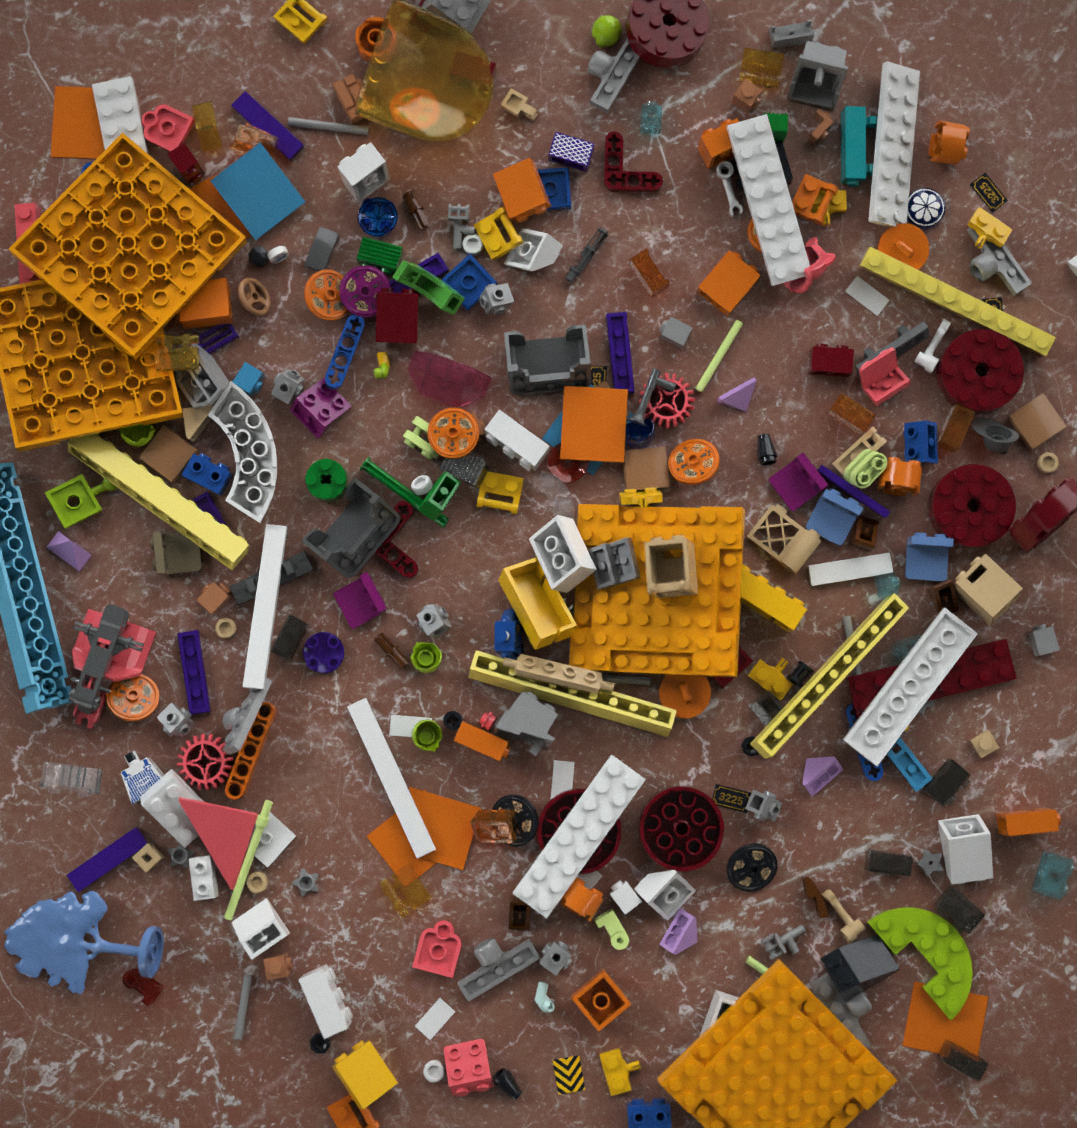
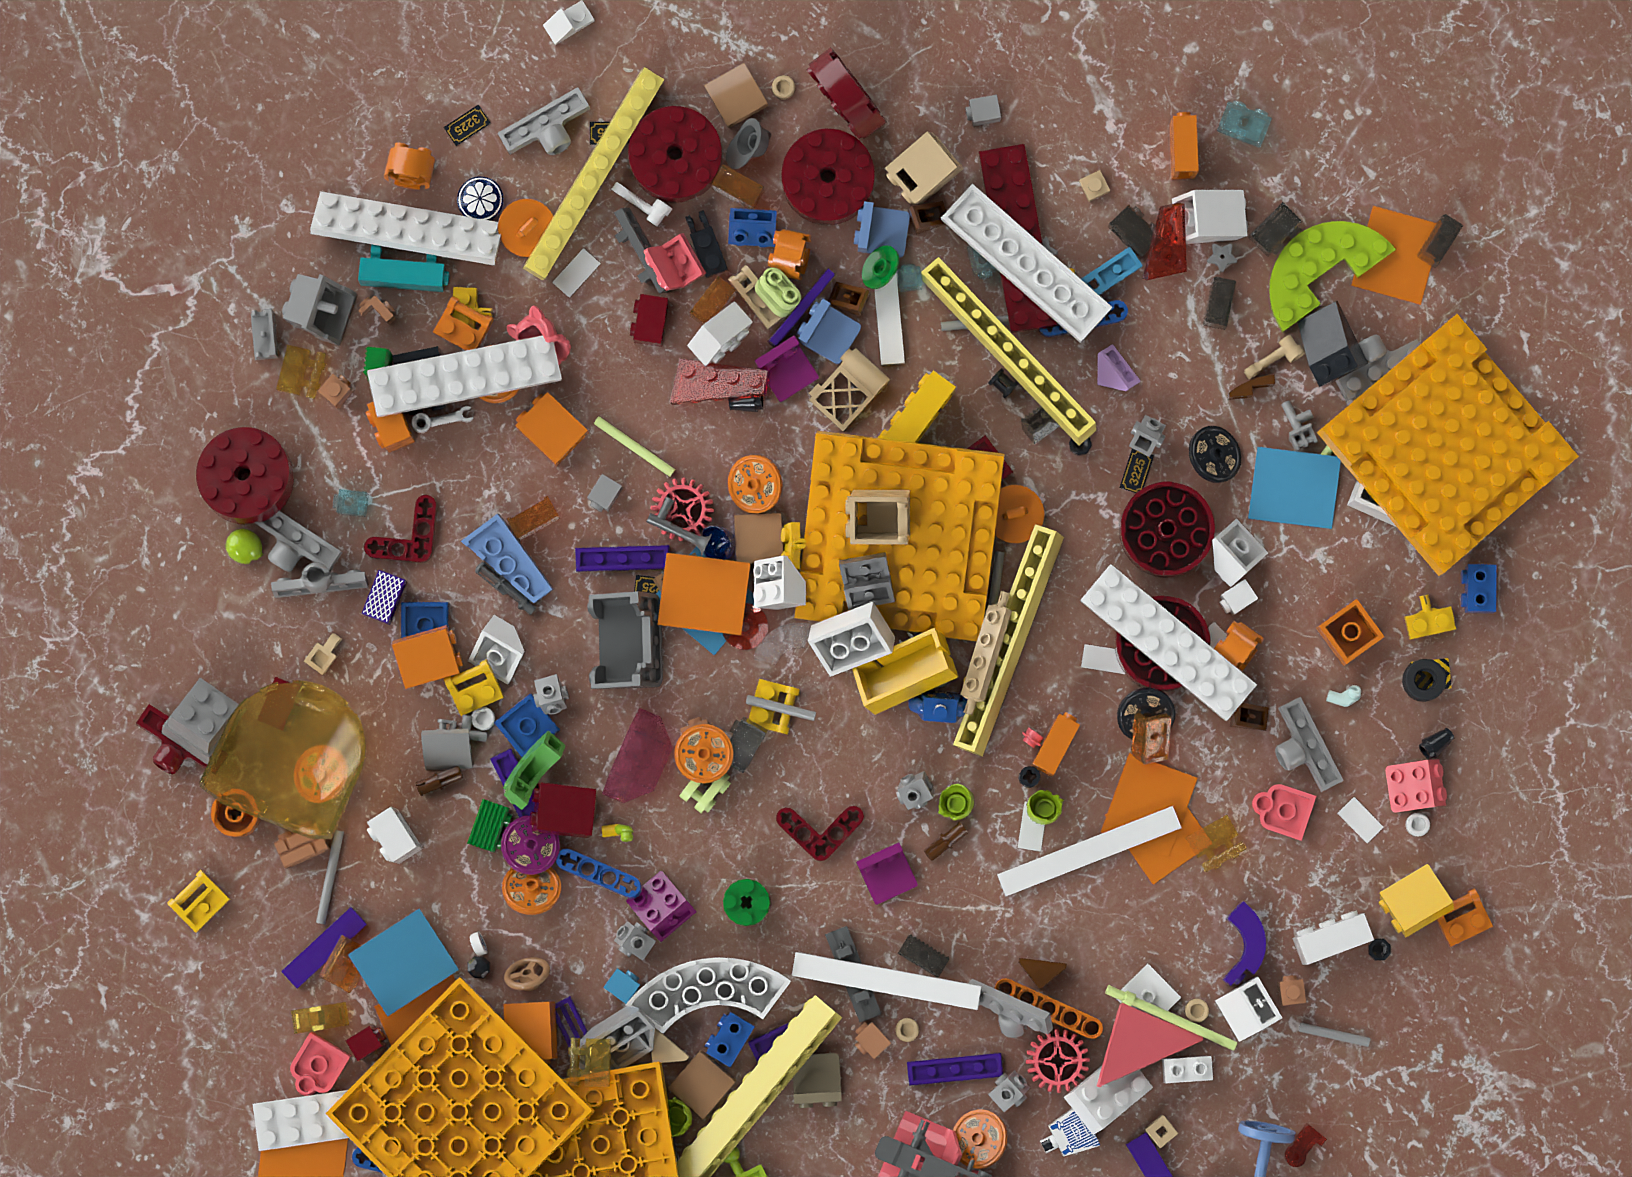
camera: 85 degrees left, 0 degrees up
(175, 859) = (1165, 1101): light grey plate -> none
(283, 742) = (1041, 971): none -> reddish brown slope
(300, 882) = (1206, 958): light grey plate -> none
(321, 249) = (476, 893): dark grey slope -> none
(321, 929) = (1254, 941): none -> dark purple arch
(323, 652) = (942, 919): dark purple dish -> none
(355, 532) = (807, 873): dark grey windscreen -> none
(377, 216) = (442, 826): clear blue dish -> none
(398, 488) = (766, 815): green axle -> none
(421, 485) = (759, 794): white tile -> none
(439, 496) = (774, 774): green brick -> none
(443, 213) = (446, 749): none -> light grey slope
(498, 498) = (779, 707): none -> light grey bar
(516, 441) = (718, 682): white brick -> none
(528, 722) = (1037, 691): light grey piece -> none
(552, 964) = (1308, 682): light grey brick -> none
(572, 1059) = (1437, 673): none -> black tyre
(581, 93) = (318, 579): none -> light grey plate
(606, 486) = (778, 584): none -> white slope
(612, 256) = (503, 551): none -> medium blue wing
(618, 935) = (1278, 609): yellowish green leg -> none
(681, 933) = (1282, 538): lavender slope -> none
(728, 941) = (1294, 487): none -> dark azure piece
(738, 397) = (683, 426): lavender slope -> none
(771, 677) = (1005, 415): yellow plate -> none
(781, 421) = (716, 382): none -> clear red wing
(823, 420) = (720, 334): none -> white brick
(895, 557) = (880, 267): none -> green dish
(899, 406) = (707, 247): none -> black hinge
(938, 813) = (1168, 243): none -> clear red wing
(988, 228) = (512, 130): yellow plate -> none

